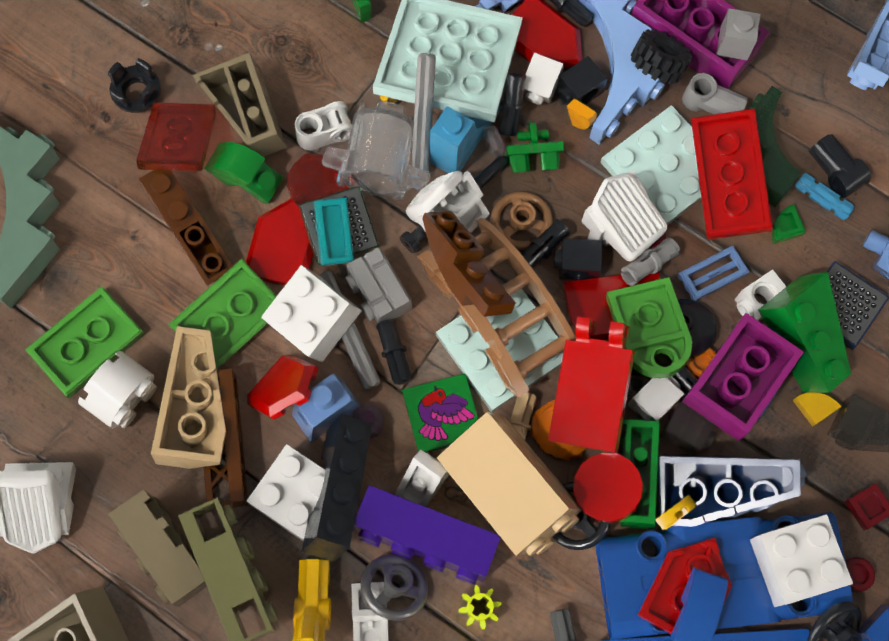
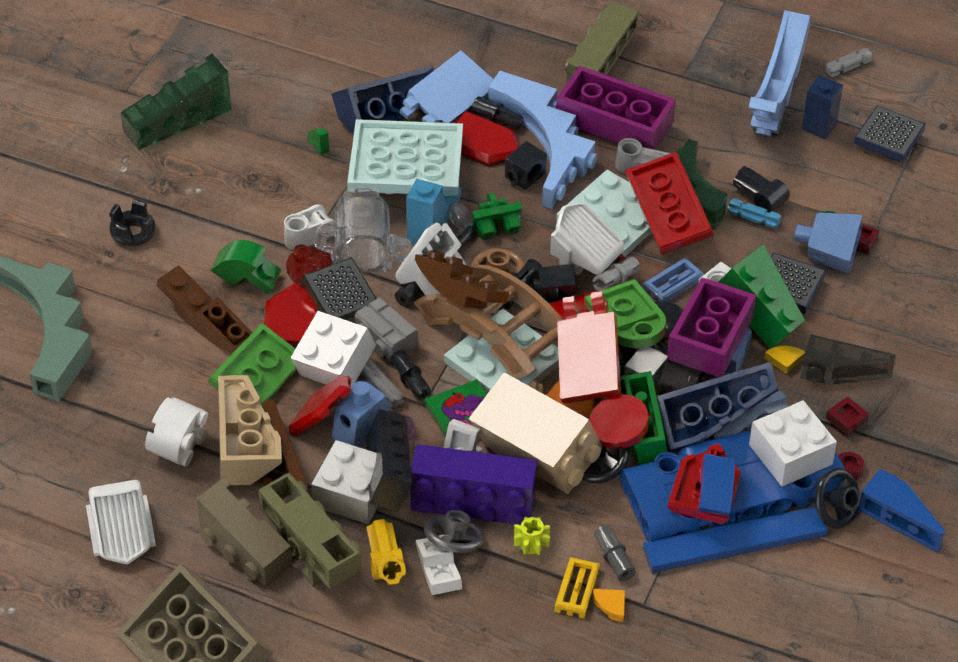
camera: 10 degrees left, 25 degrees down
(84, 341) = (129, 412): bright green tile -> none
(176, 137) = (182, 249): clear red tile -> none
(244, 100) = (231, 215): dark tan wedge -> none
(333, 231) = (337, 291): teal tile -> none
(423, 110) = (395, 190): light grey axle -> none
(512, 104) = (469, 183): black axle -> none
(542, 79) = (490, 165): white brick -> none
(581, 115) = (530, 184): light orange tile -> none
(661, 56) = (588, 129): black tyre -> none
(676, 512) = (680, 429): yellow tile -> none
(738, 34) = (648, 100): light grey brick -> none
(787, 225) = (728, 239): green tile -> none

